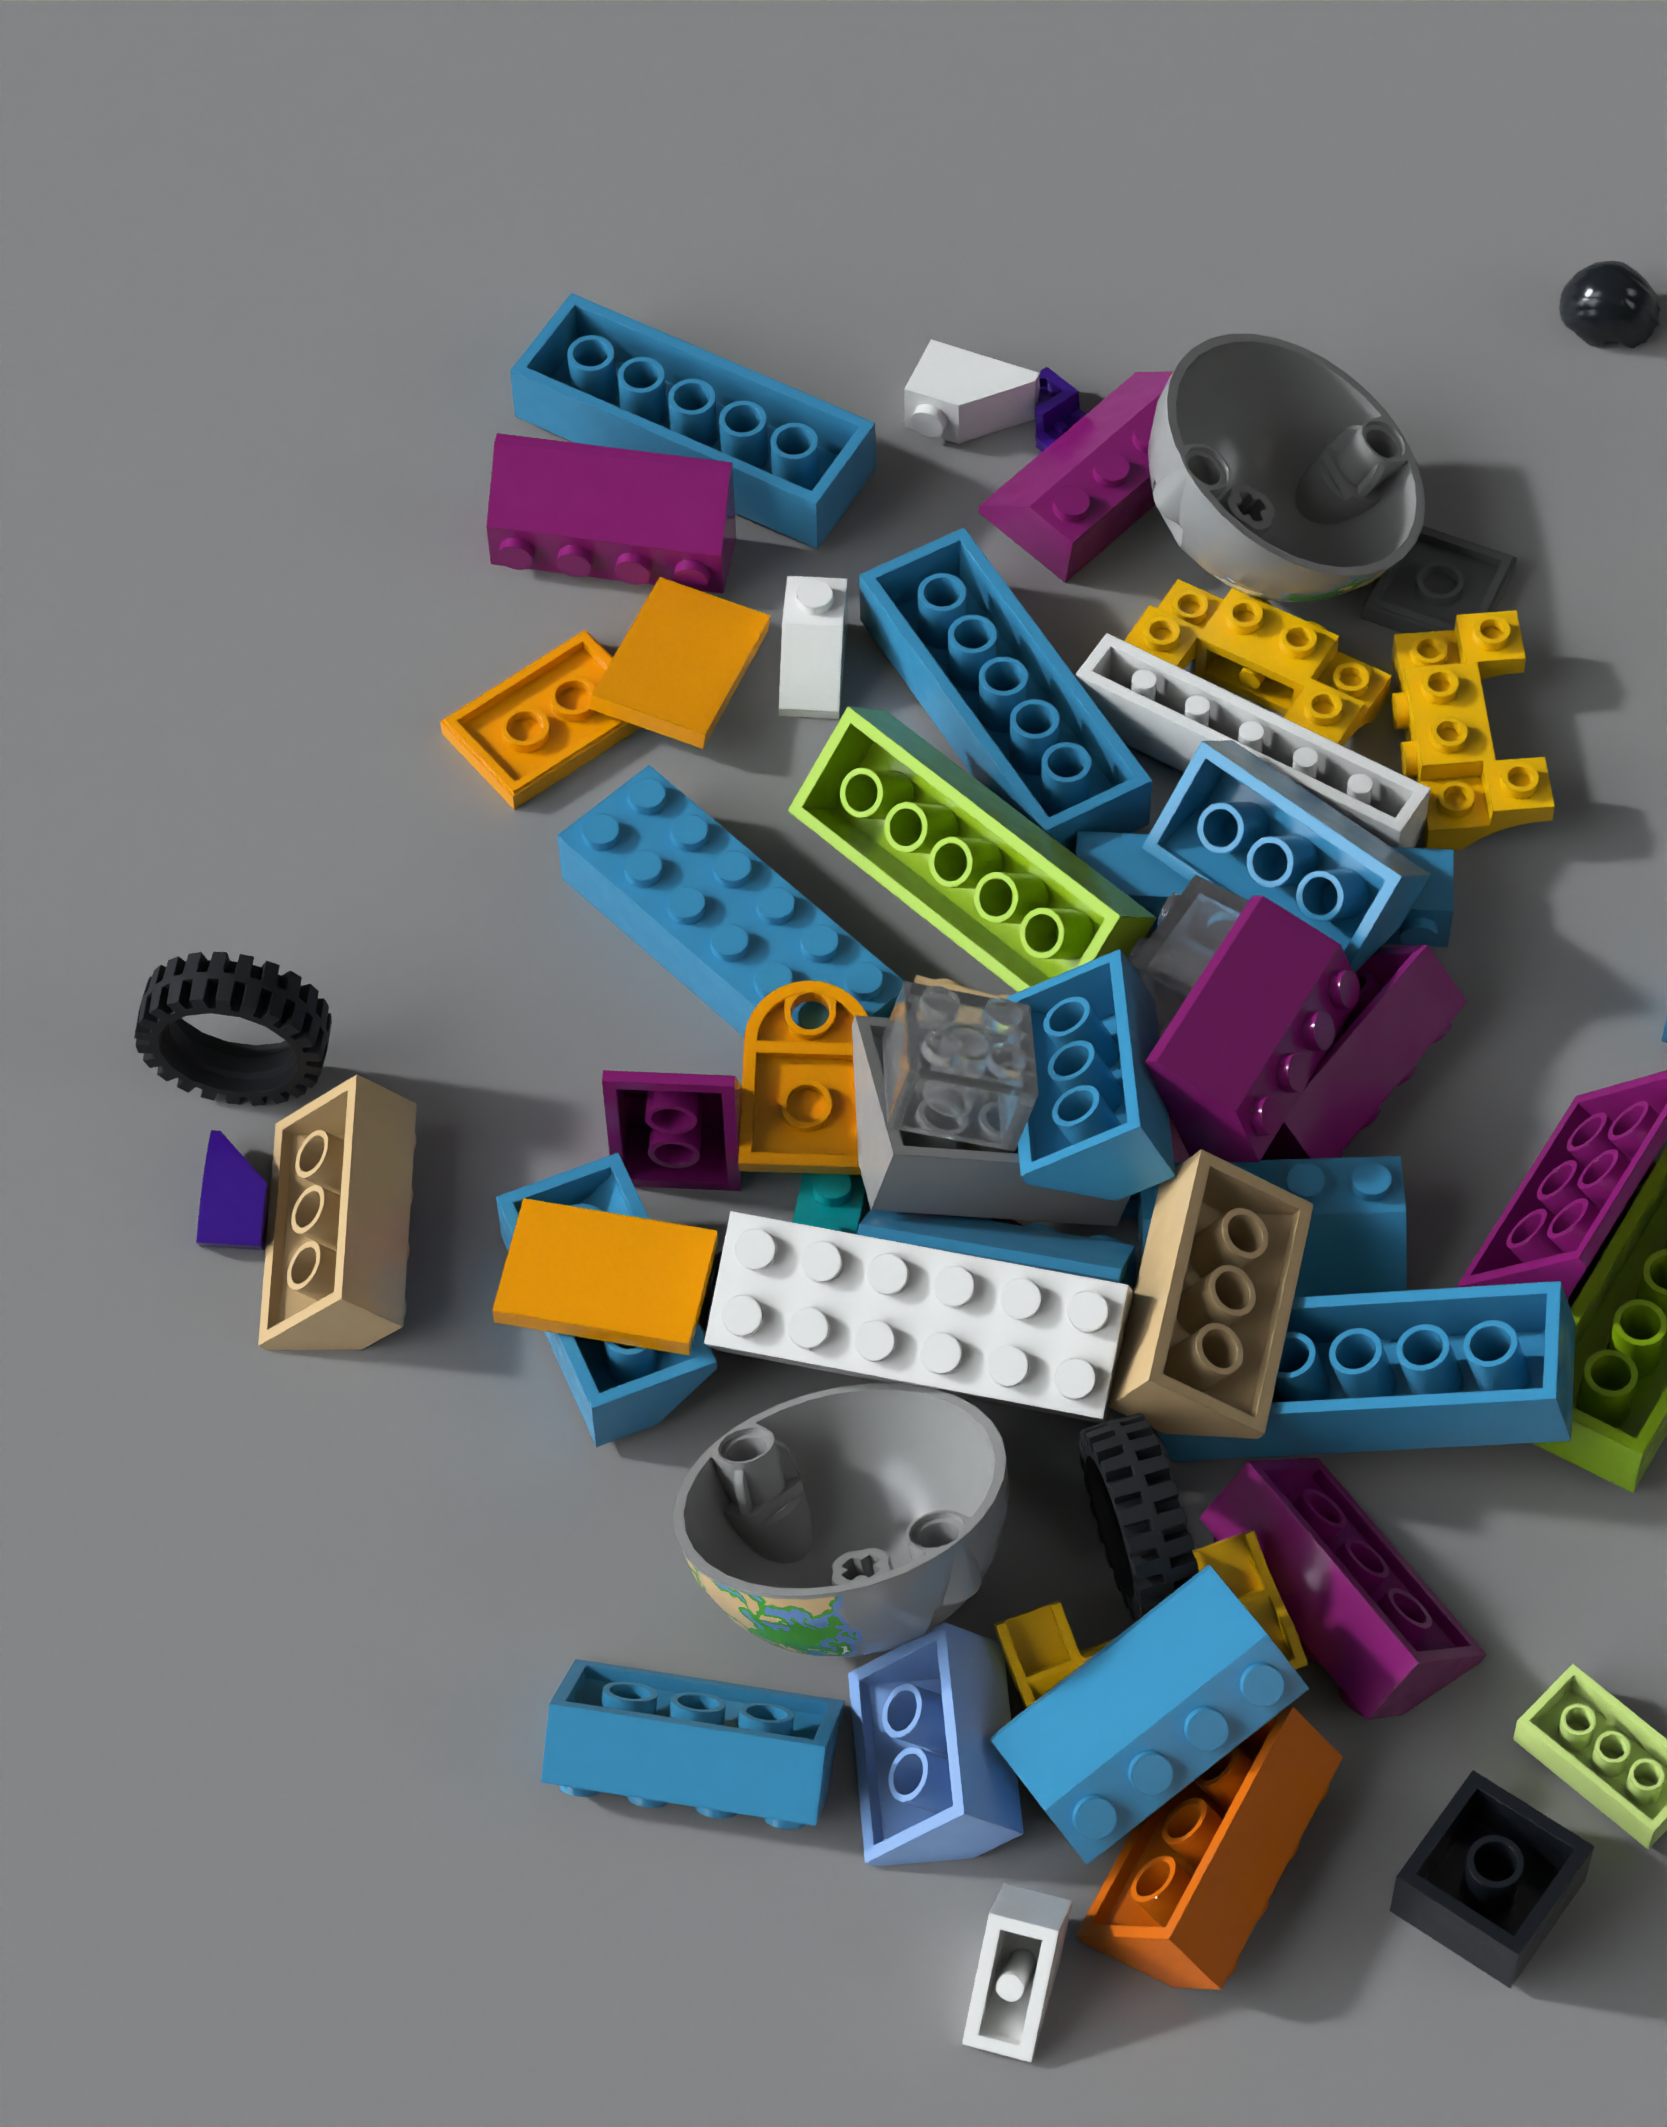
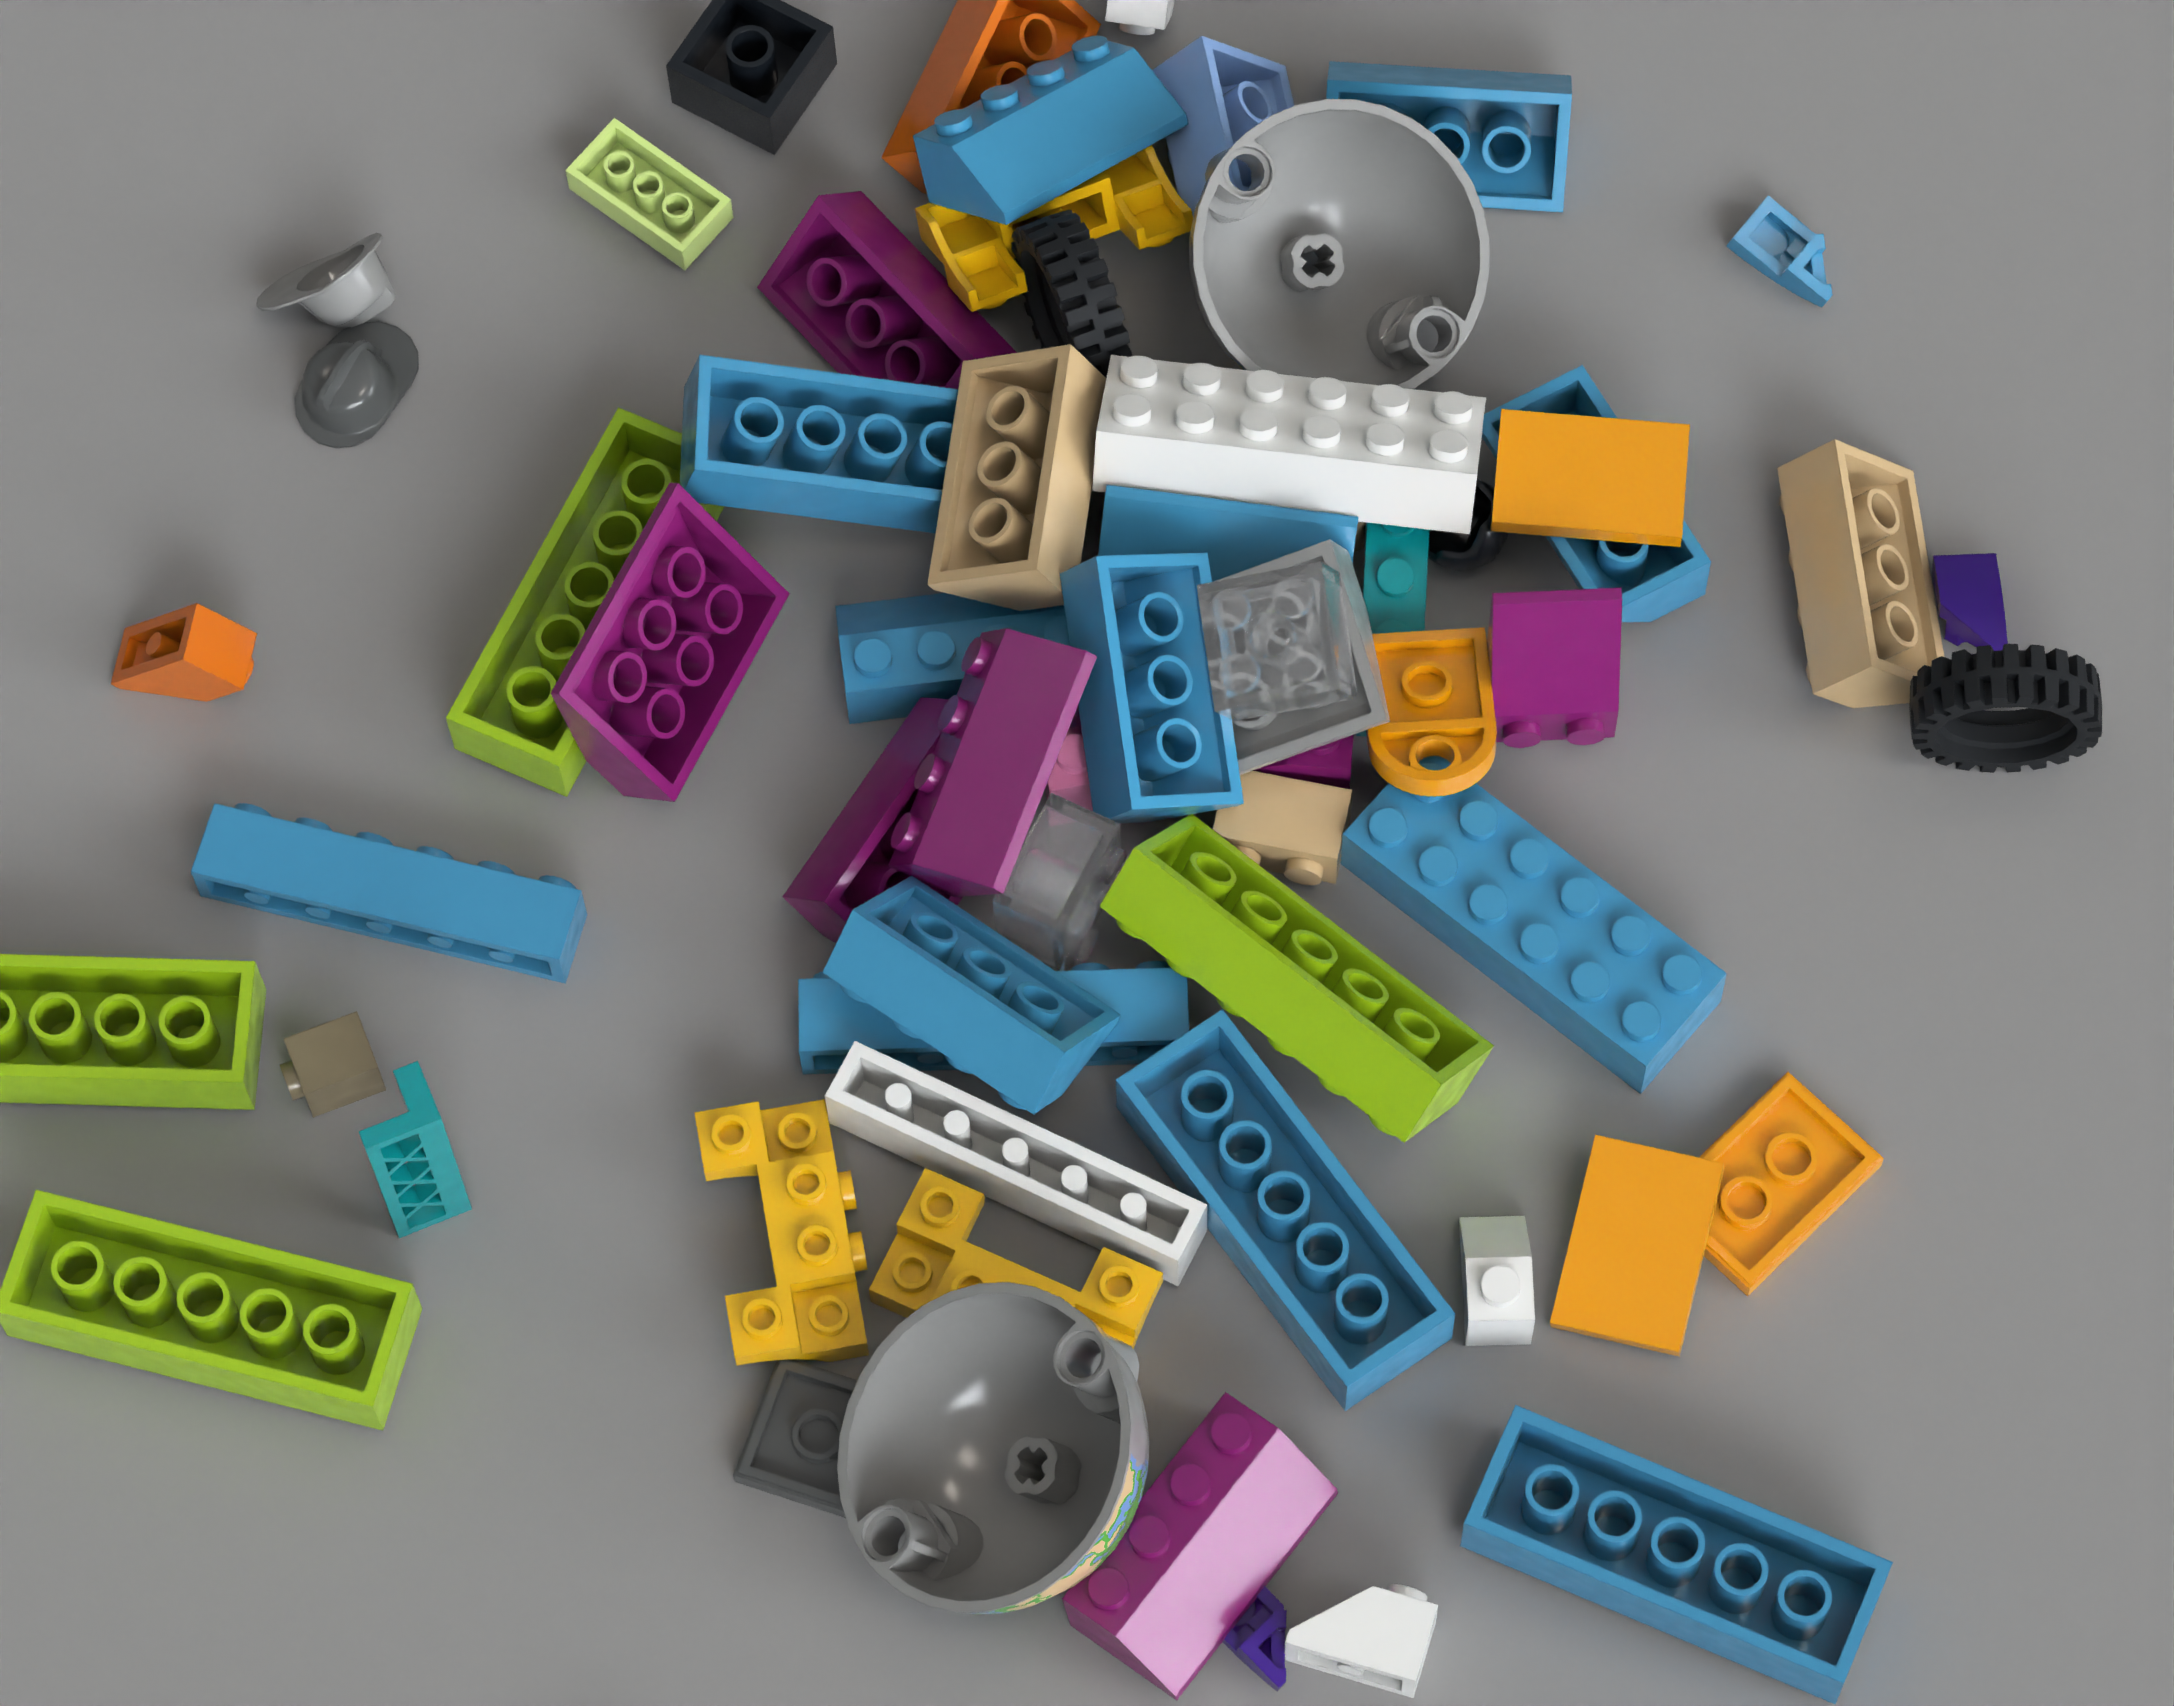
camera: 175 degrees right, 10 degrees up
(339, 1589) = (1784, 251): none -> dark azure slope
(611, 513) = (1744, 1407): magenta slope -> none

